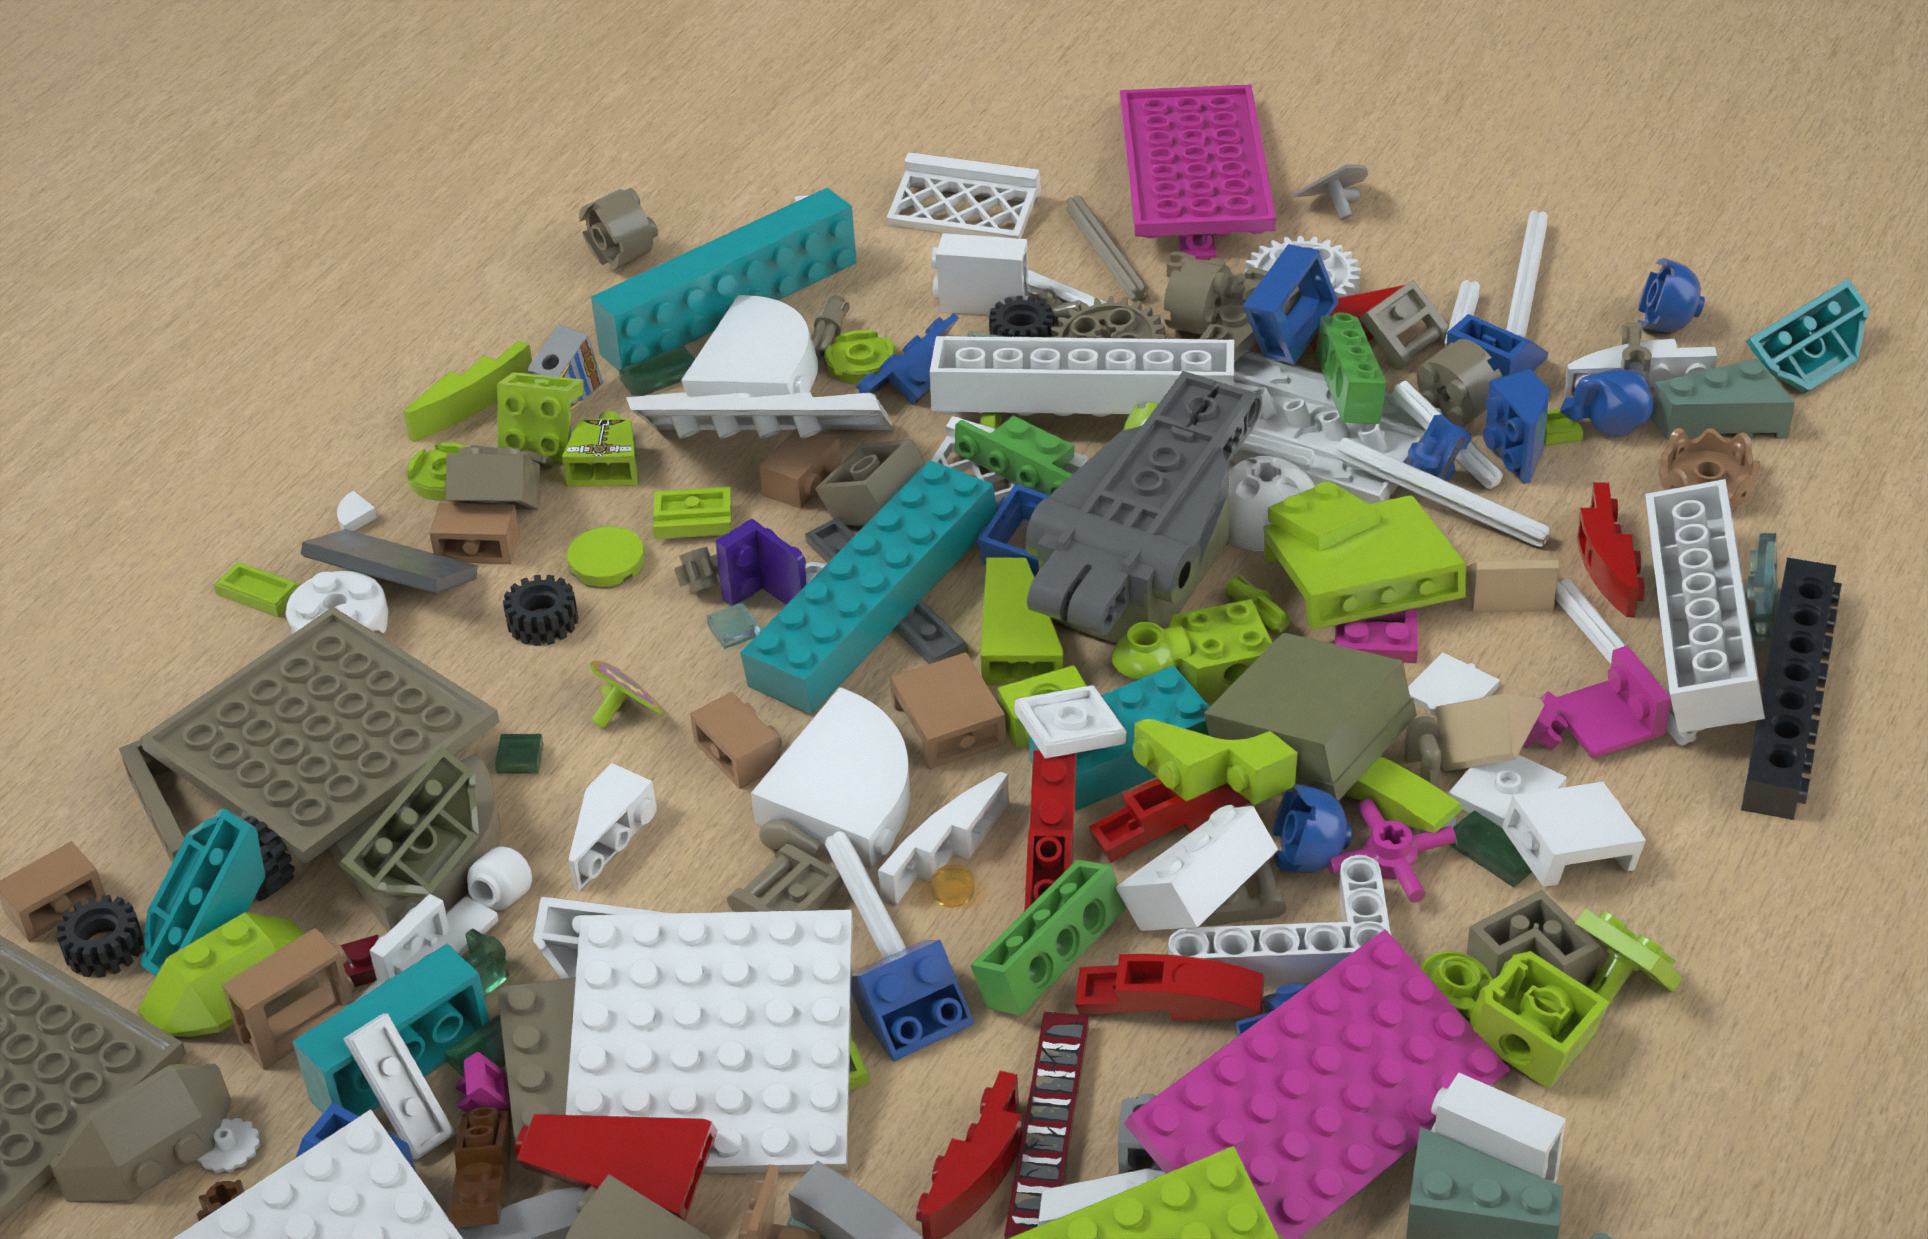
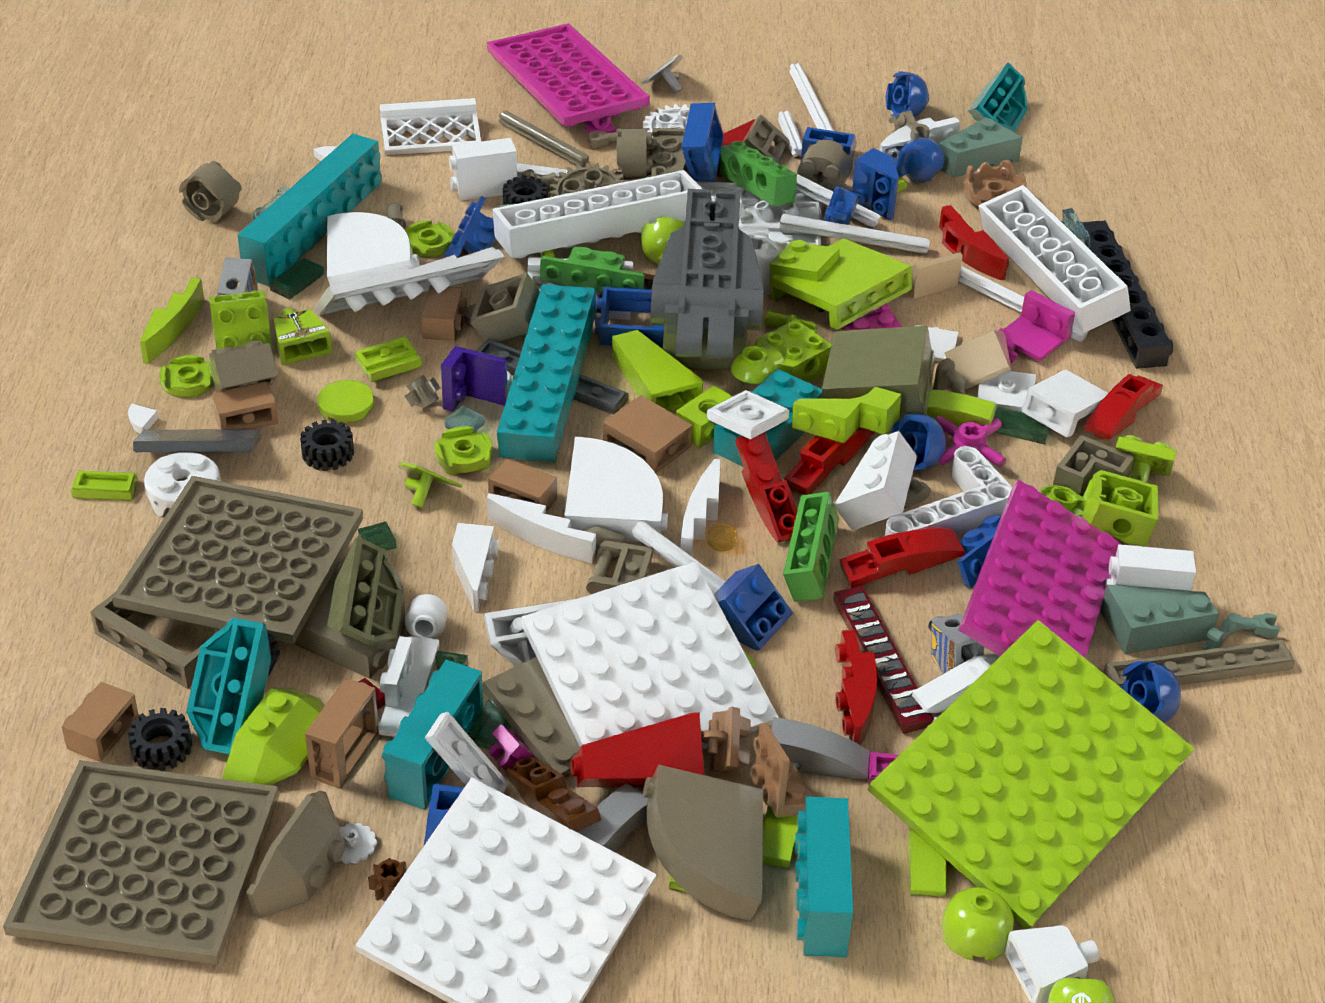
camera: 30 degrees left, 0 degrees up
(713, 680) = (476, 454): none -> lime plate
(718, 796) = (546, 531): none -> white slope
(754, 1153) = (723, 740): none -> medium nougat hips
(1655, 860) = (1121, 406): none -> red slope

